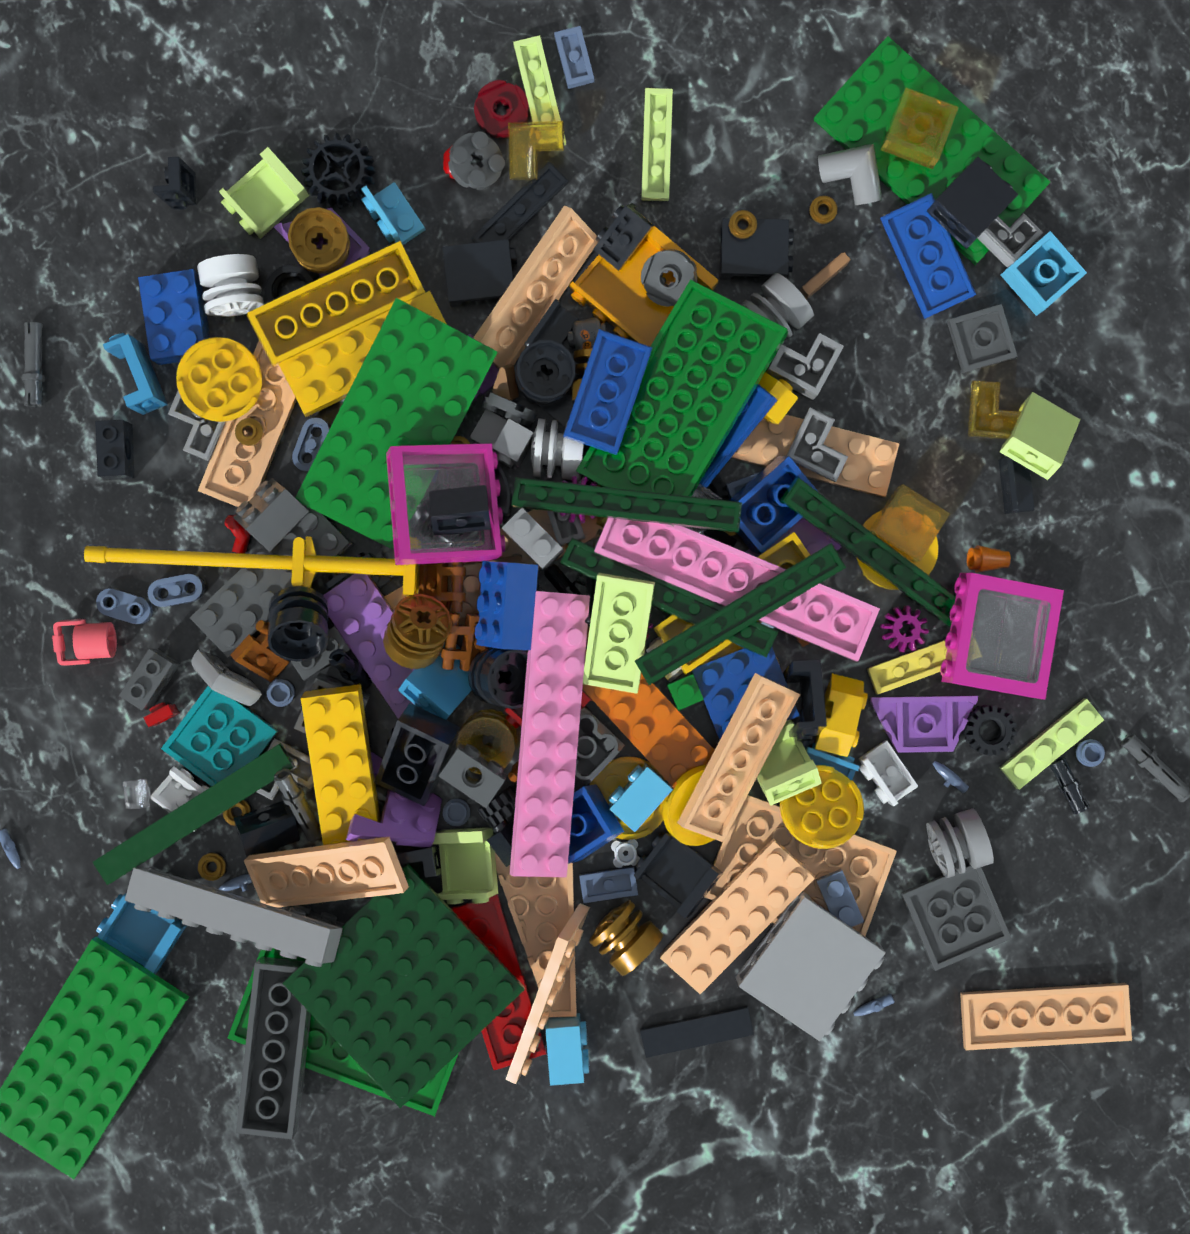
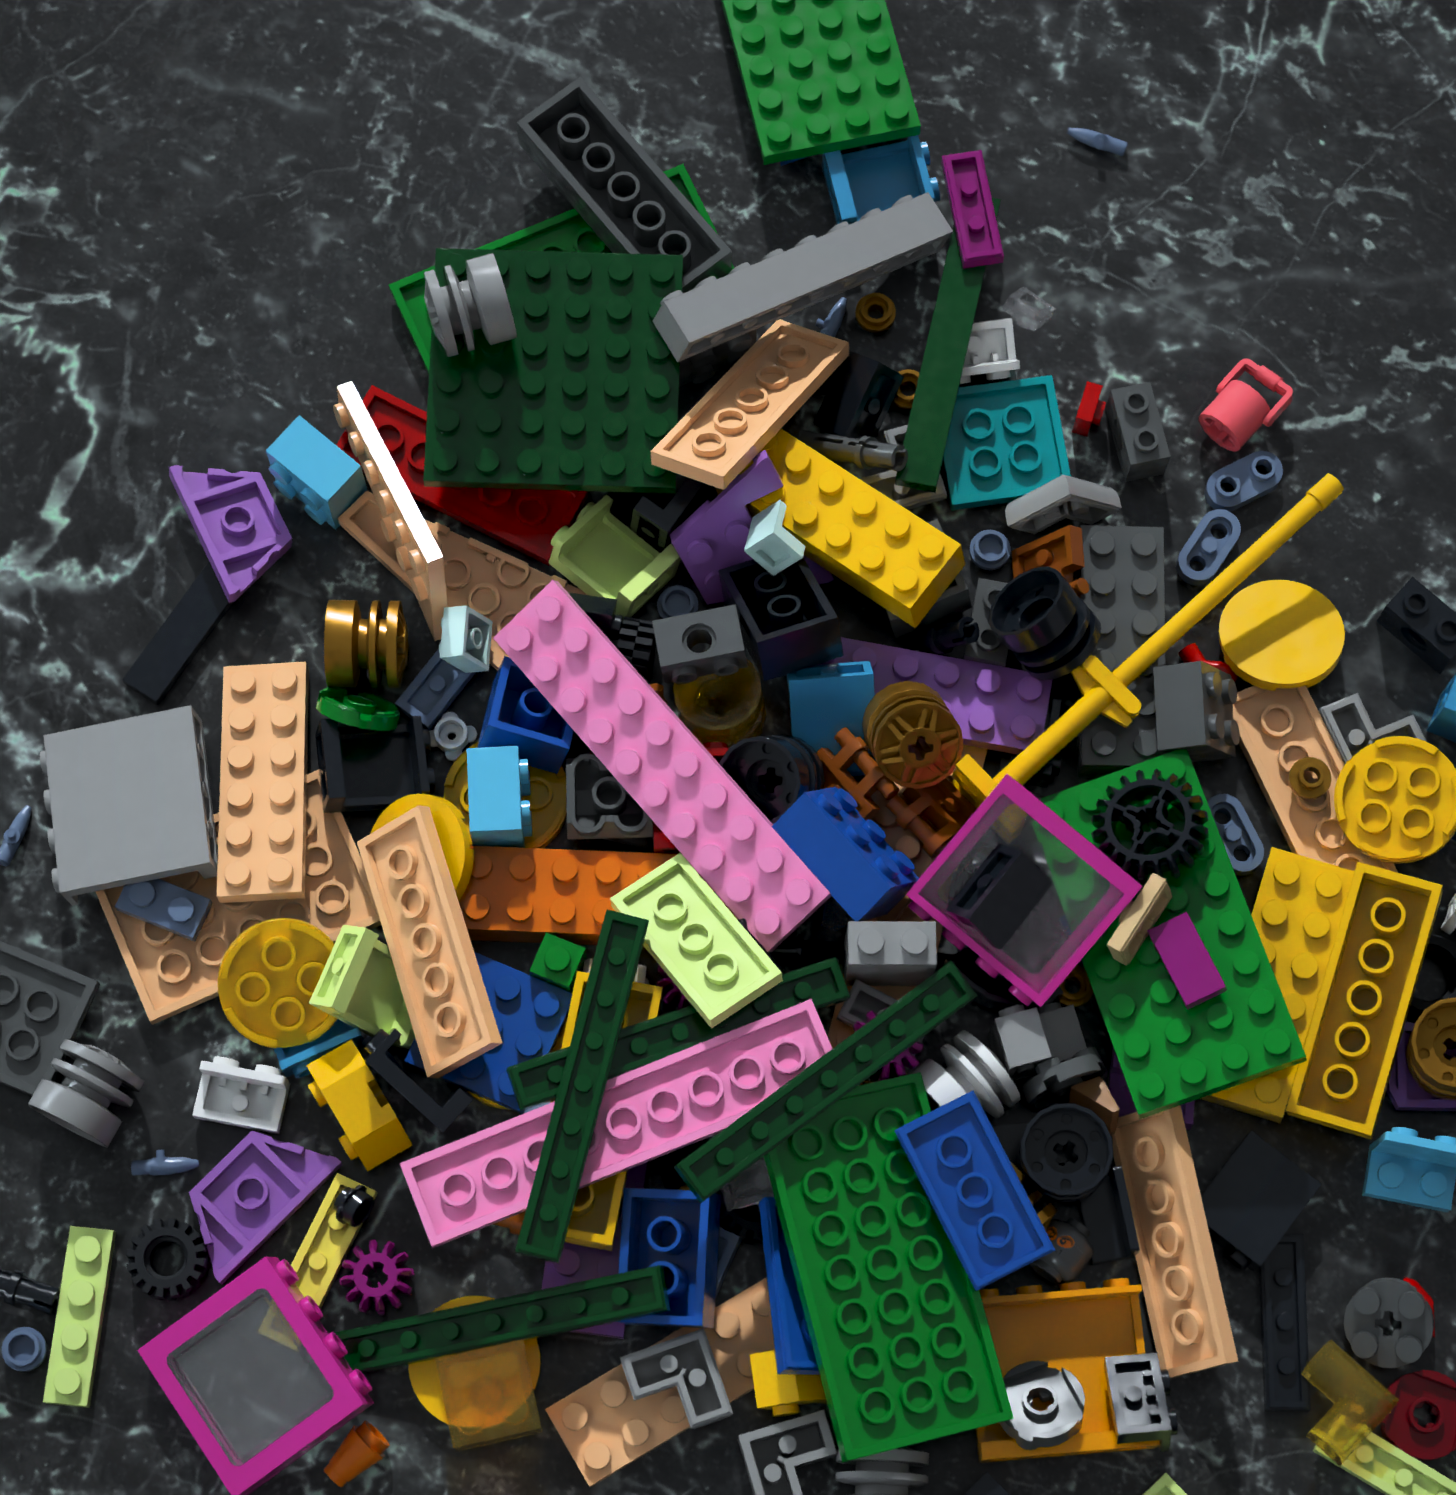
camera: 135 degrees right, 15 degrees down
(111, 870) = (972, 209): none -> magenta tile
(188, 512) = (1281, 635): none -> yellow tile
(361, 499) = (1161, 794): none -> black gear
(389, 792) = (770, 542): none -> light aqua panel
(402, 396) = (1187, 960): none -> magenta tile
(404, 437) = (1139, 918): none -> tan plate
(418, 1057) = (469, 305): none -> light grey wheel
(577, 891) = (465, 639): none -> light aqua piece
(628, 1062) = (233, 523): none -> medium lavender wing
(660, 906) = (360, 711): none -> green tile
(887, 670) = (353, 1205): none -> black plate

